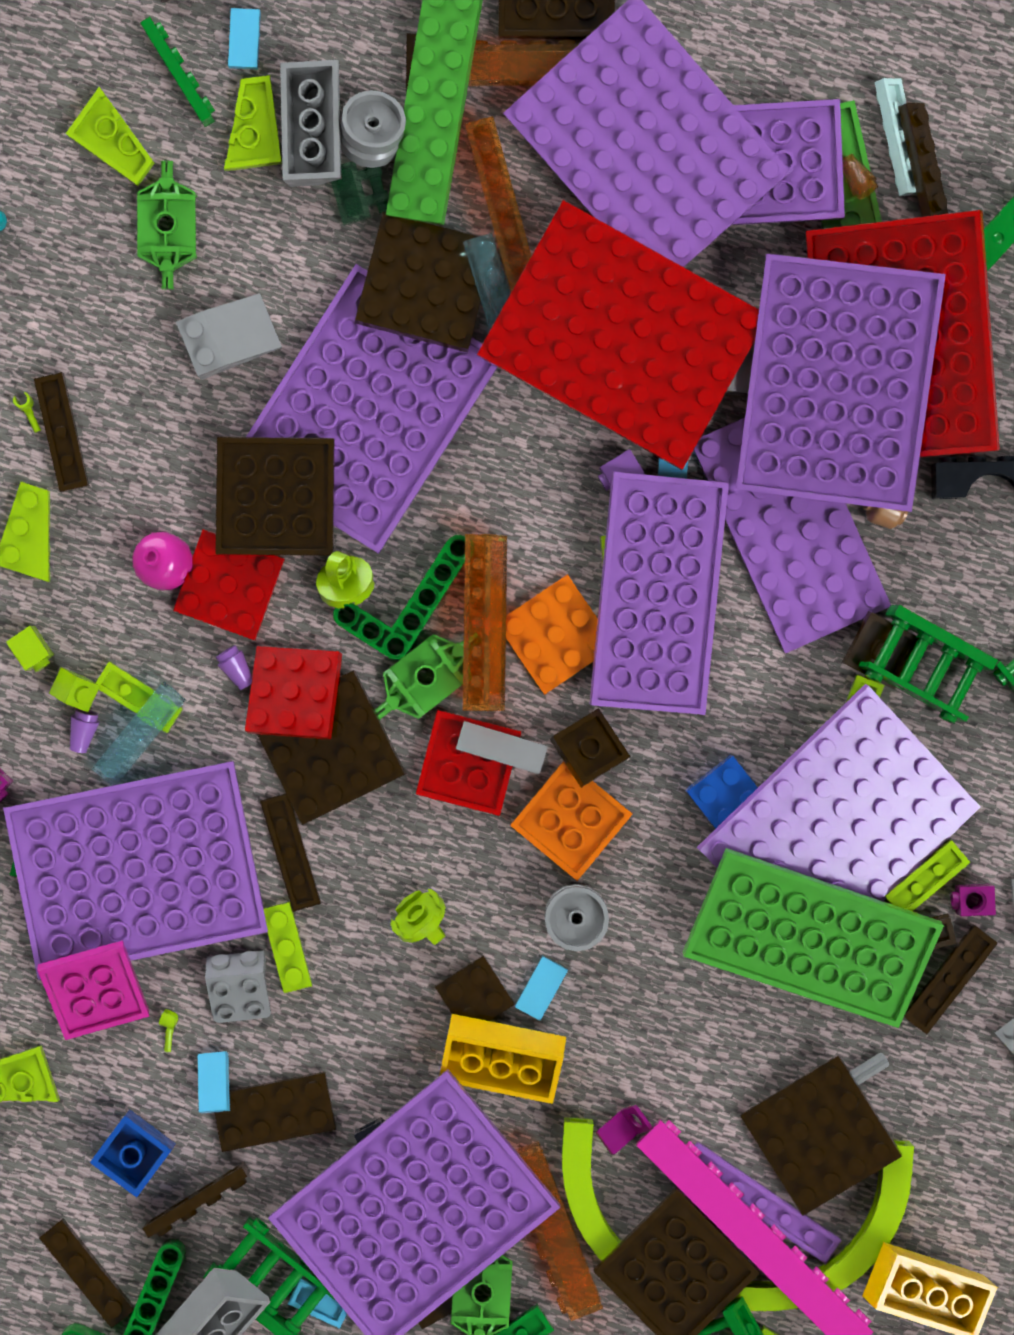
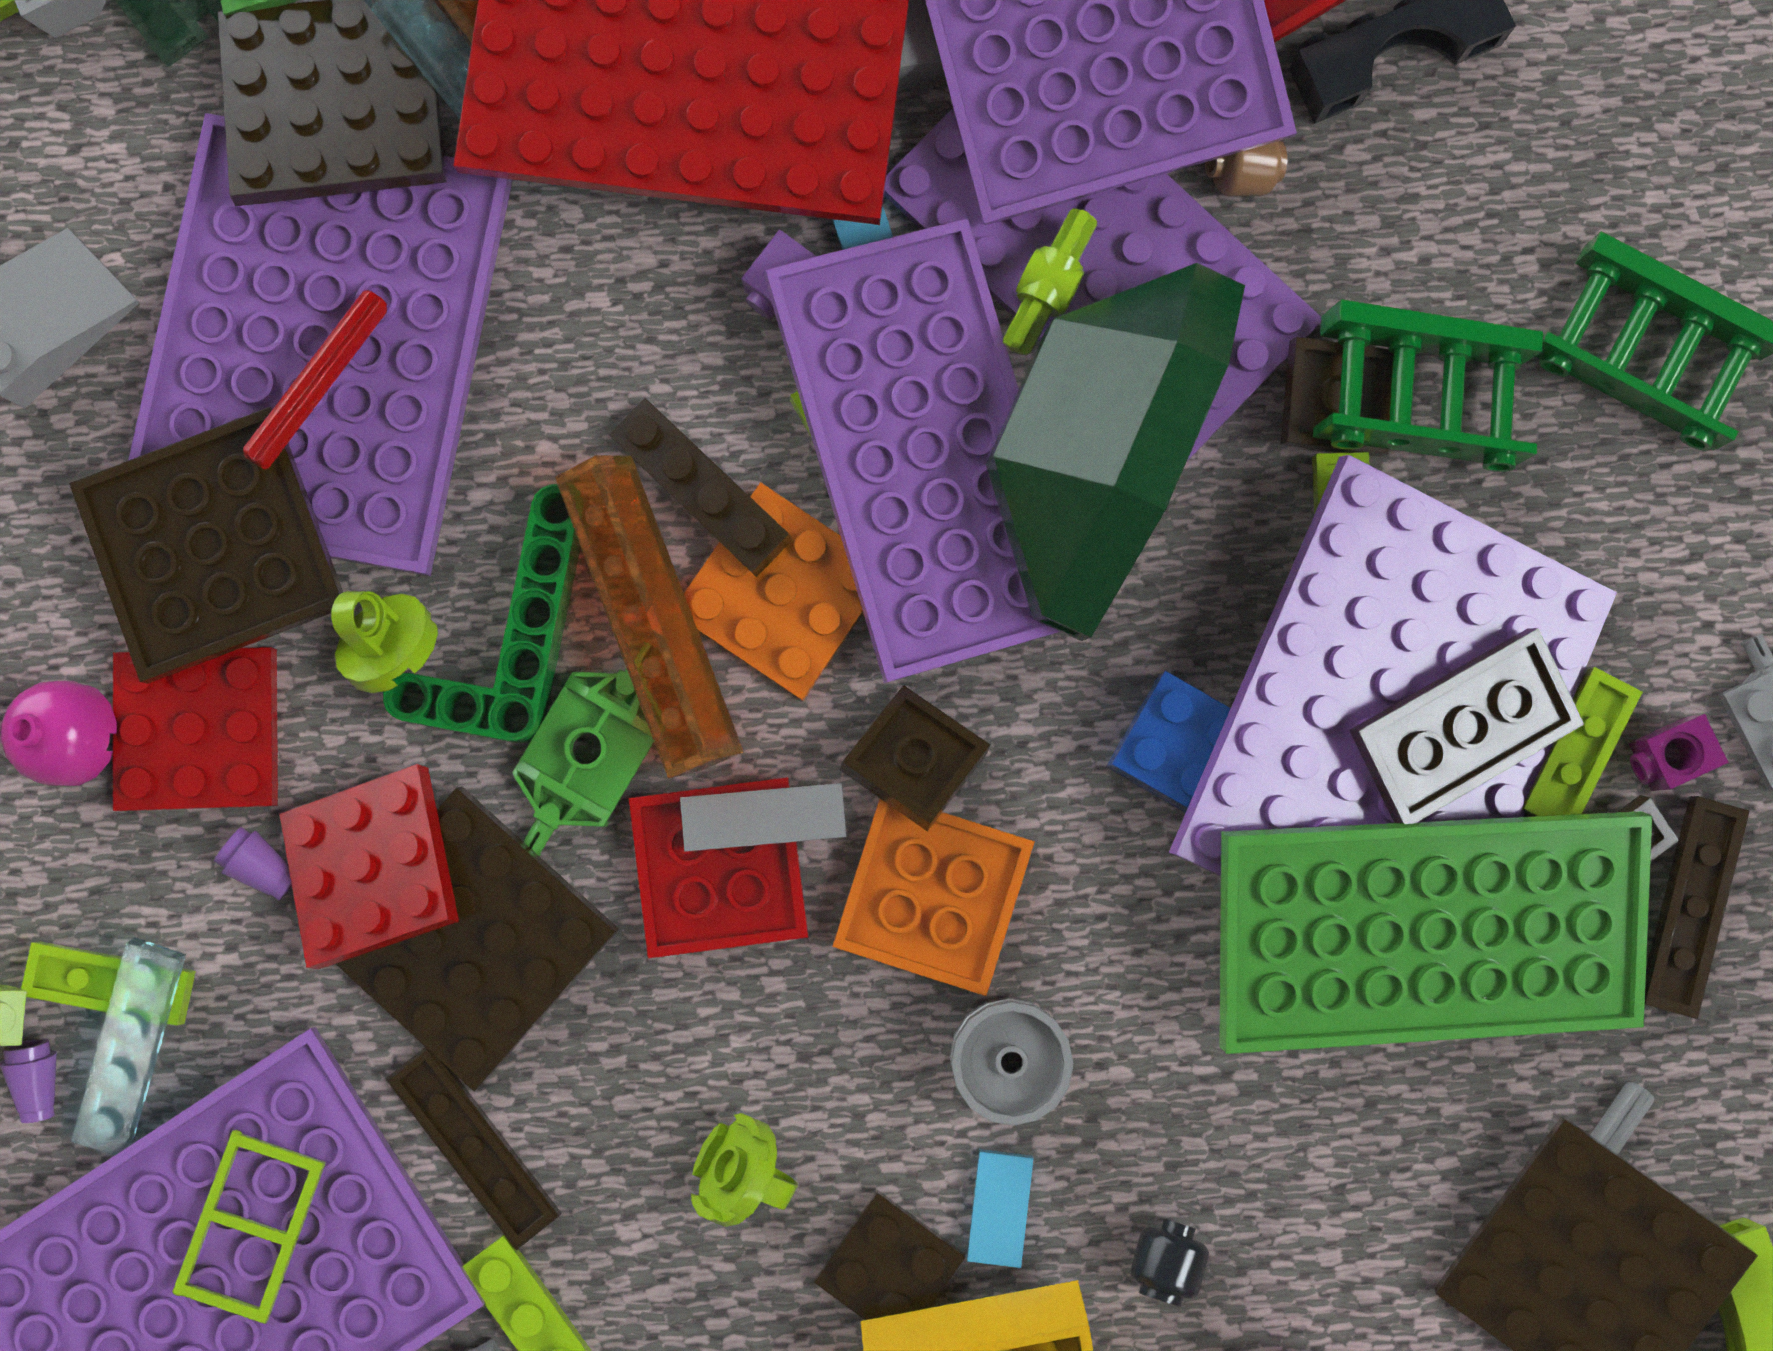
camera: 25 degrees left, 5 degrees down
(150, 833) = (286, 1239): none -> lime window
(362, 433) = (315, 379): none -> red axle
(536, 565) = (701, 487): none -> dark brown plate
(614, 1047) = (1169, 1263): none -> black head
(752, 626) = (1107, 436): none -> dark green panel
(757, 533) = (1049, 281): none -> lime axle
(871, 845) = (1467, 727): none -> plate

